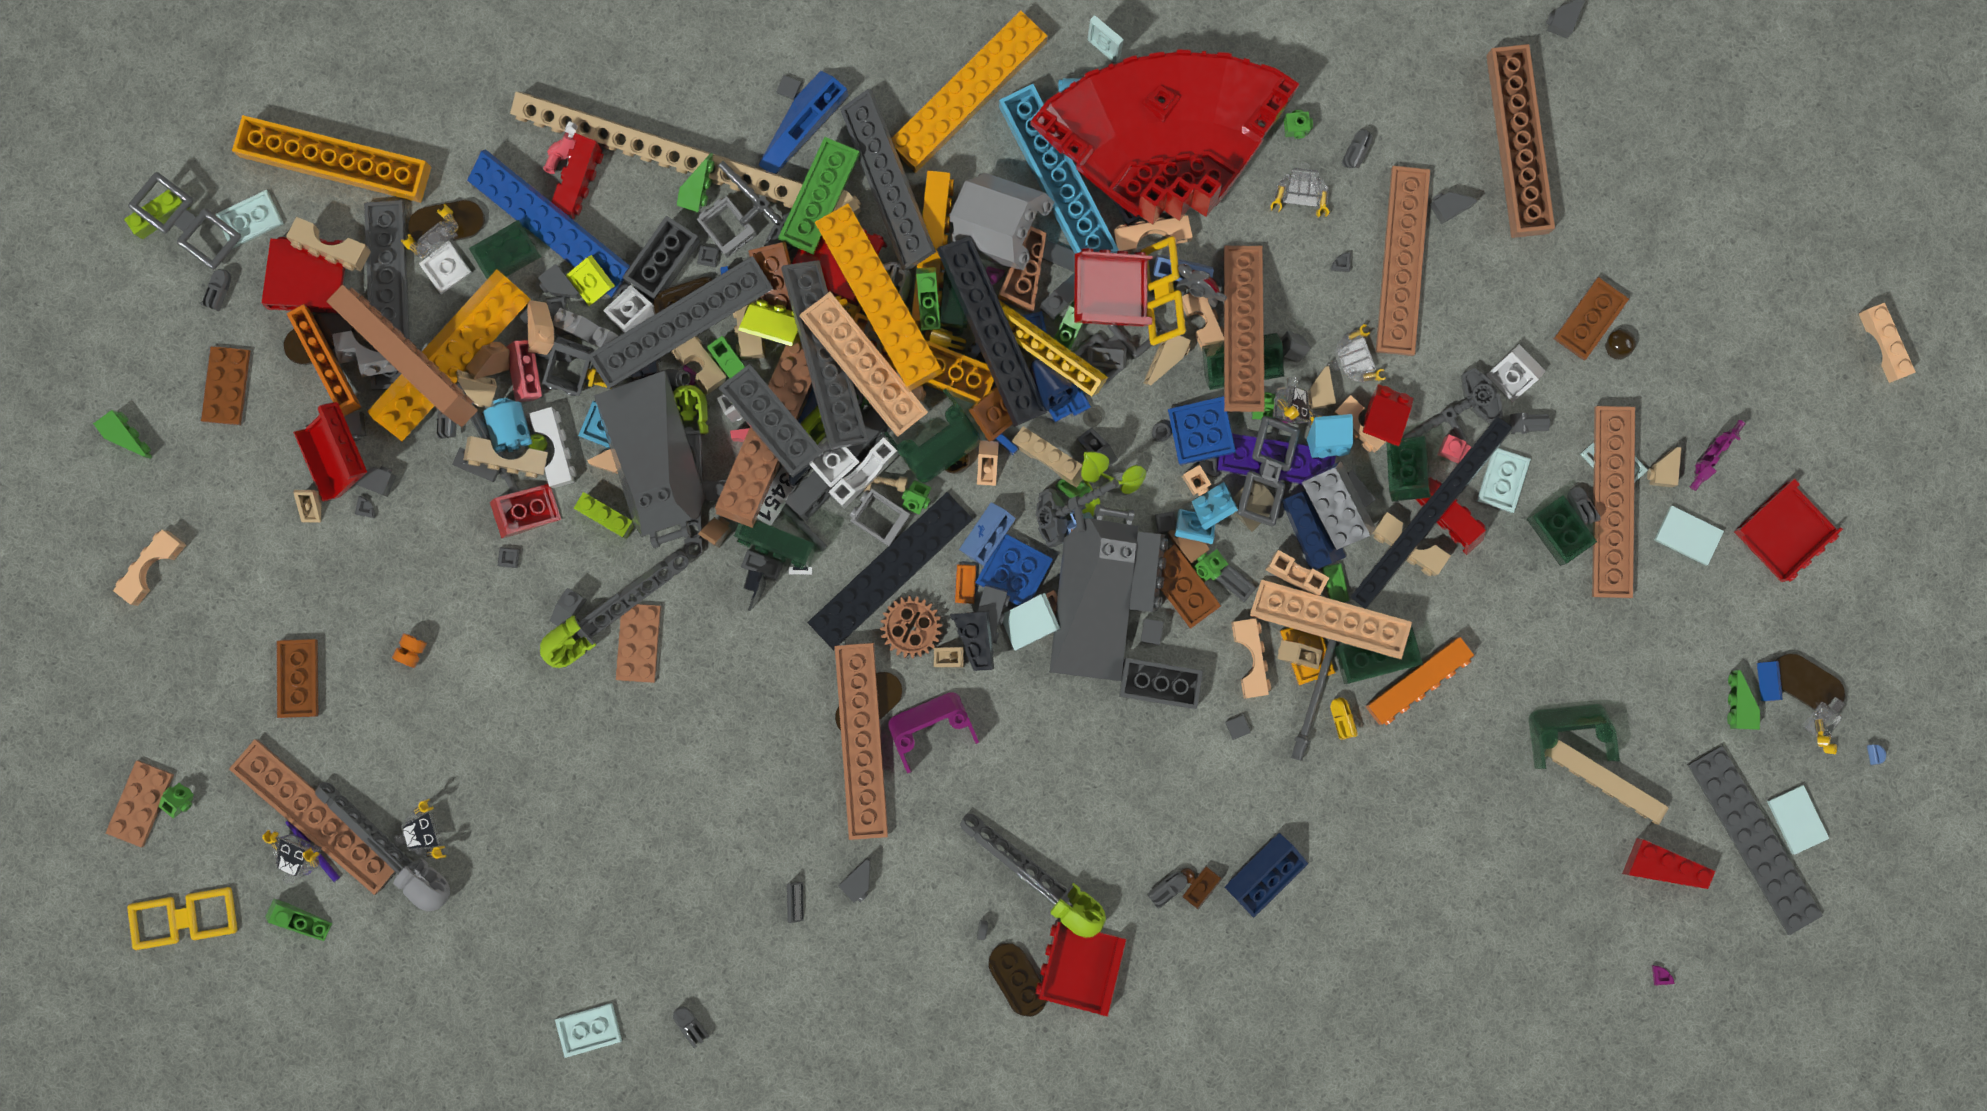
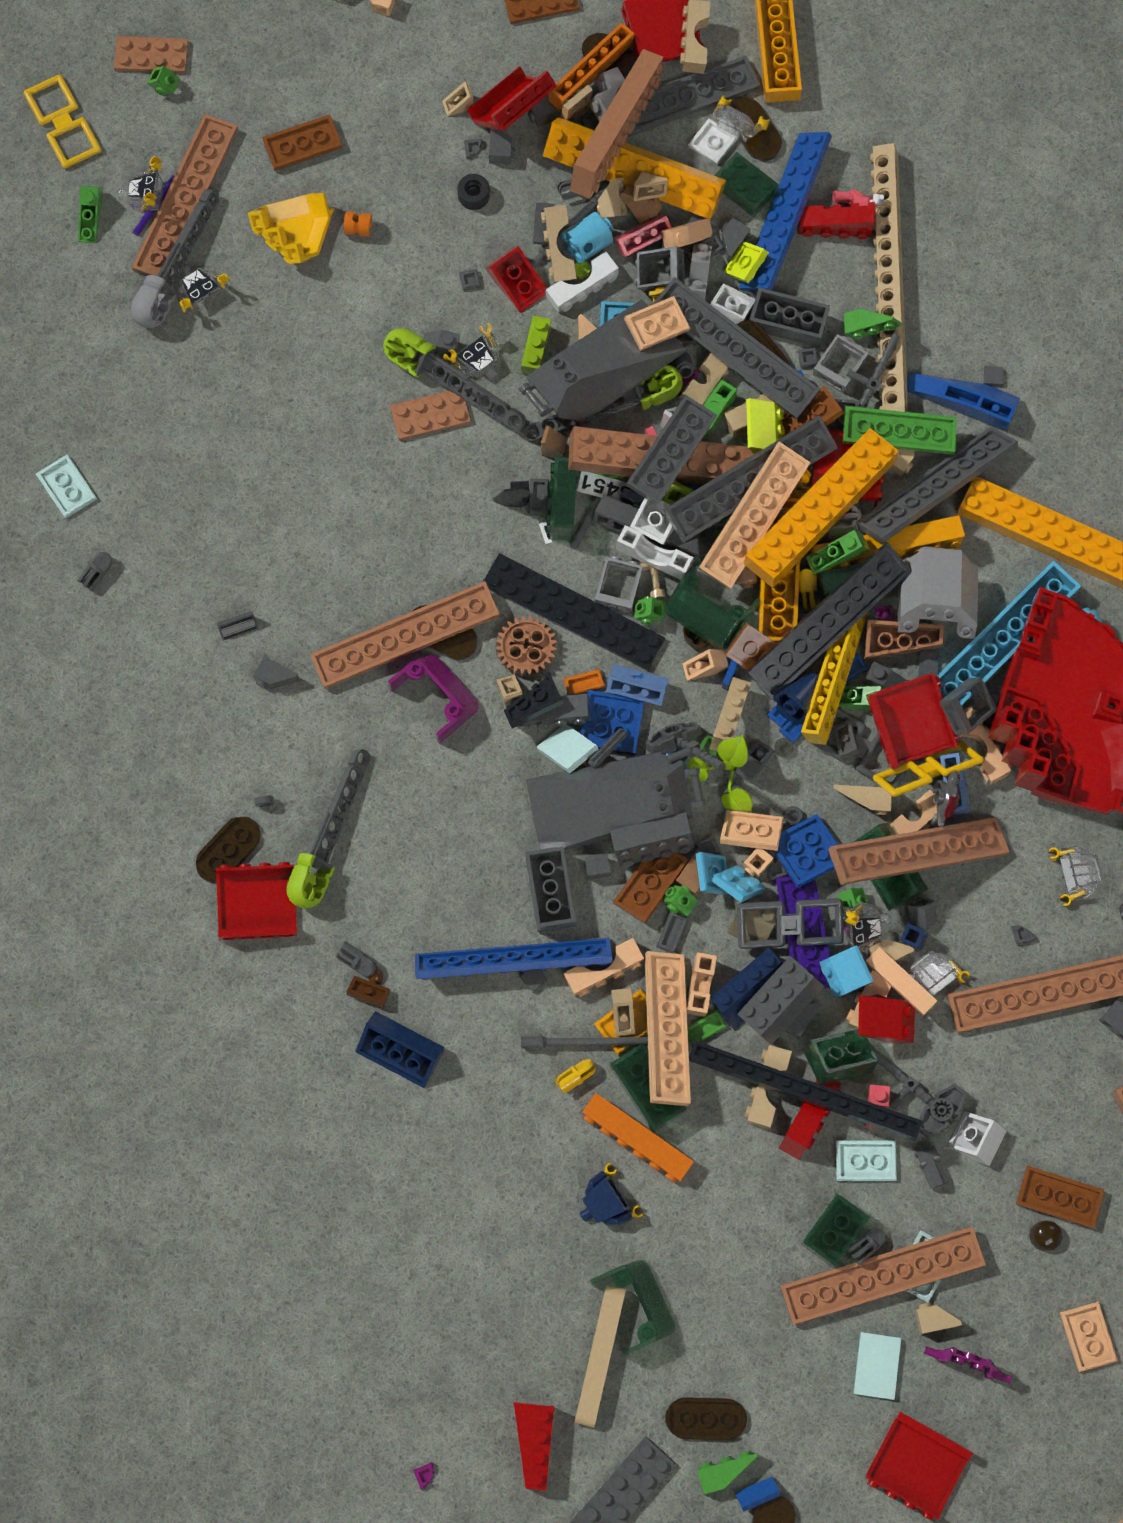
camera: 75 degrees right, 10 degrees down
(360, 387) = (578, 104): none -> tan plate
(388, 715) = (294, 225): none -> yellow panel
(403, 519) = (473, 202): none -> black tyre
(479, 346) = (649, 187): none -> tan slope
(596, 577) = (478, 357): none -> torso
(631, 389) = (657, 323): none -> light nougat tile
(1044, 583) = (607, 748): none -> dark grey axle
(1122, 246) = (955, 712): none -> dark grey window
(1165, 475) = (751, 830): none -> light nougat tile
(1216, 741) = (513, 958): none -> blue plate
(1315, 361) = (914, 936): none -> dark blue brick
(1356, 388) = (901, 981): none -> light nougat tile
(1469, 729) = (605, 1201): none -> dark blue torso
(1688, 704) = (705, 1418): none -> dark brown tile
(1719, 340) = (1088, 1336): none -> light nougat tile

